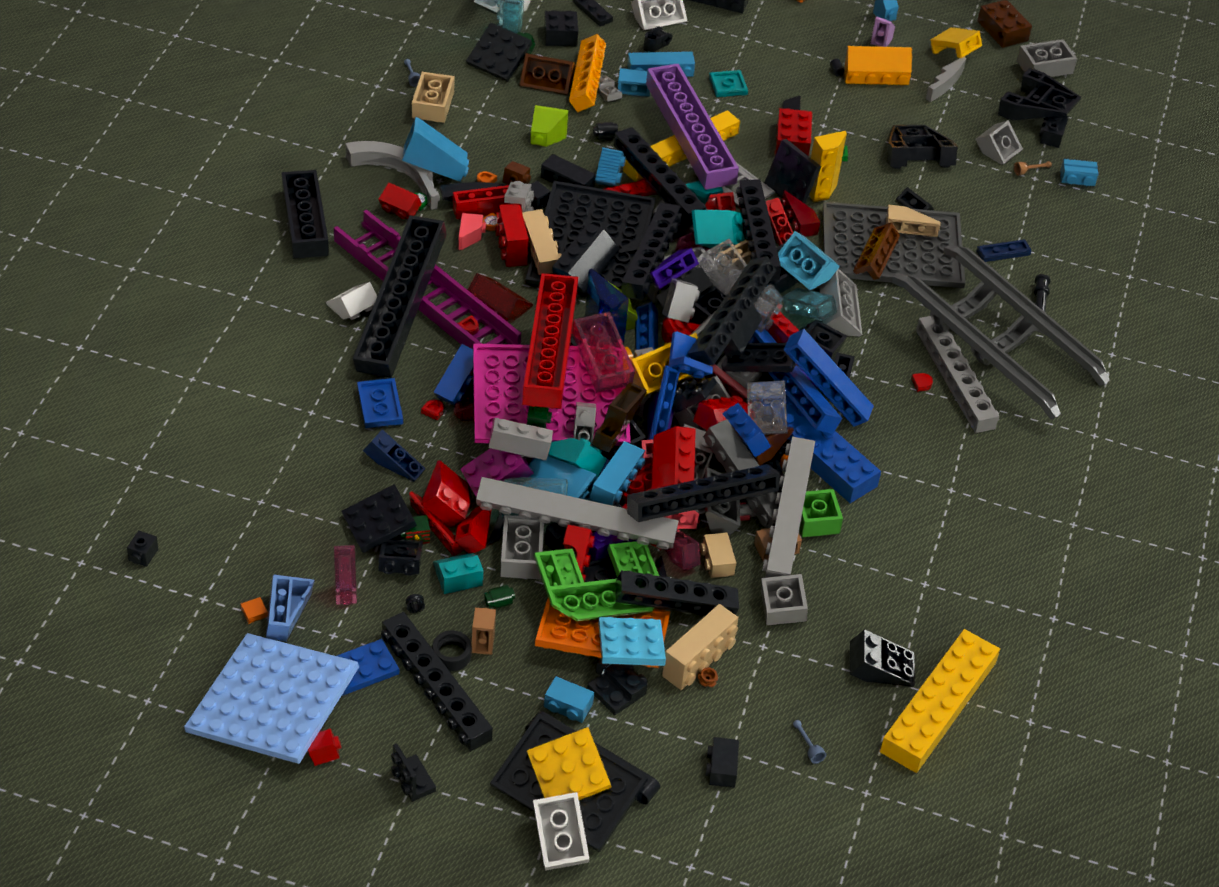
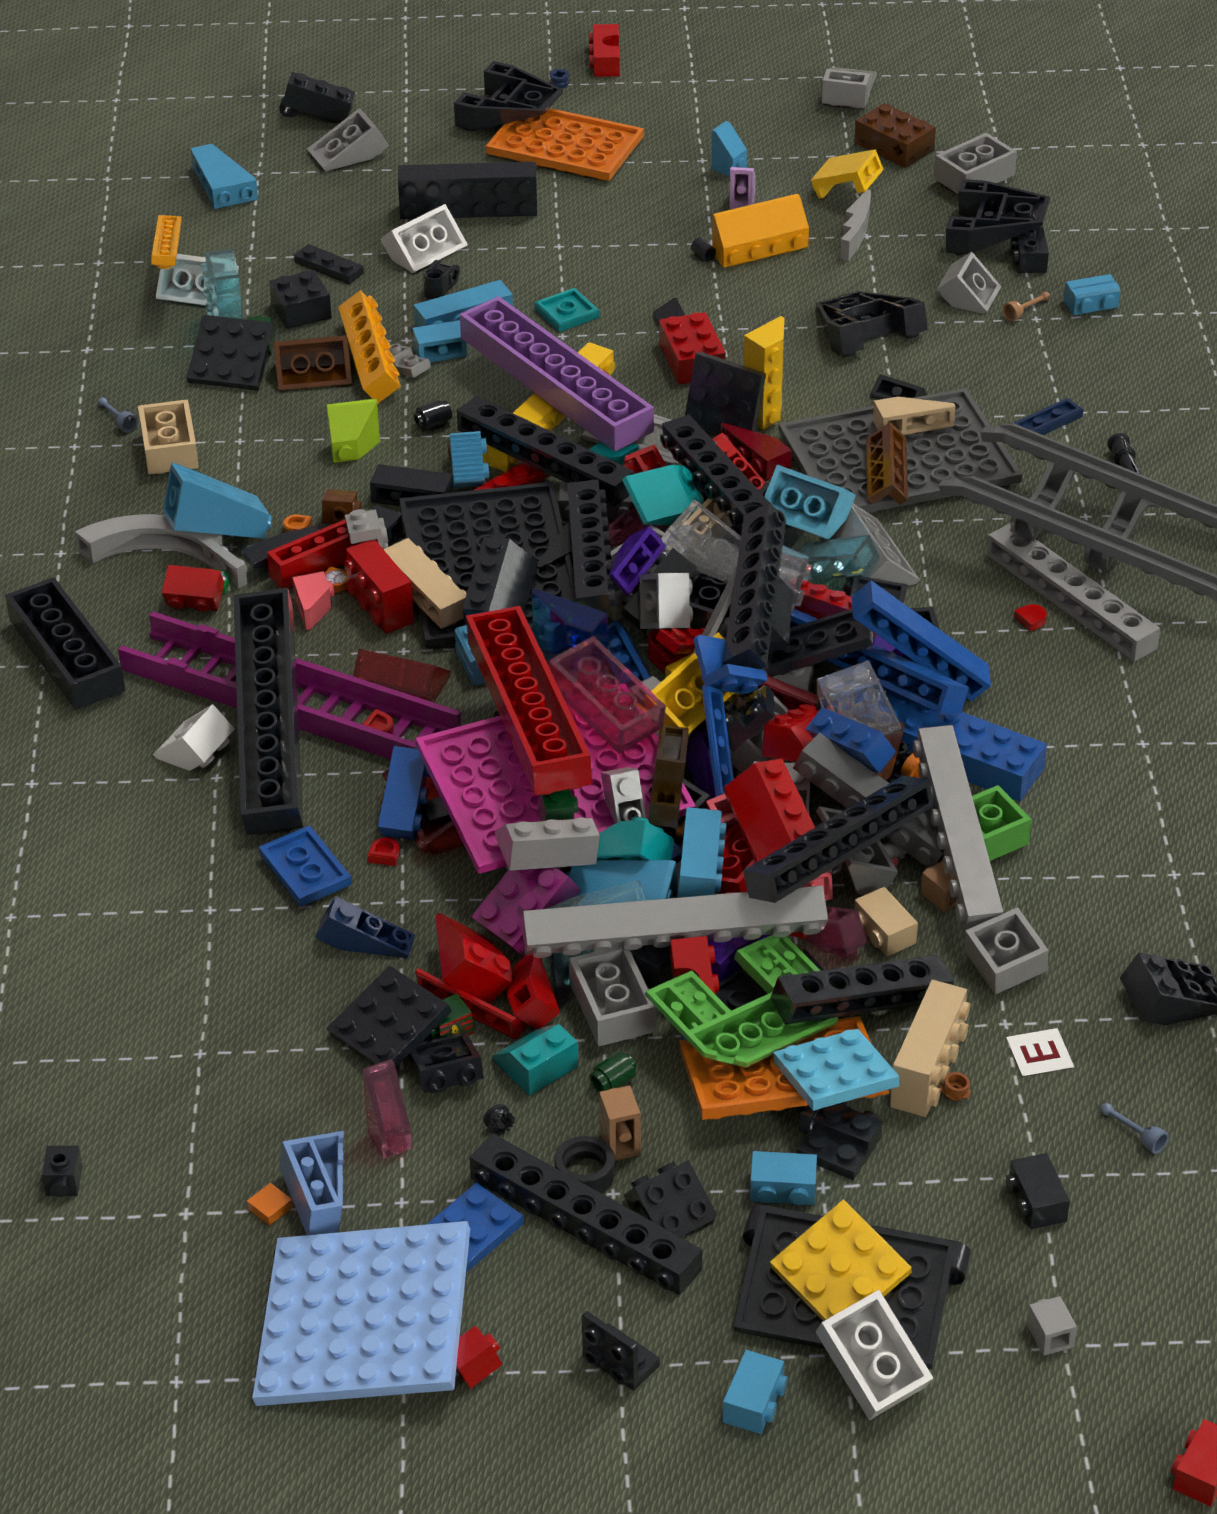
camera: 15 degrees left, 5 degrees down
(481, 828) = (754, 1392): none -> dark azure brick
(493, 690) = (673, 1198): none -> black bracket
(686, 851) = (1051, 1325): none -> light grey brick
(775, 672) = (1040, 1052): none -> white sticker

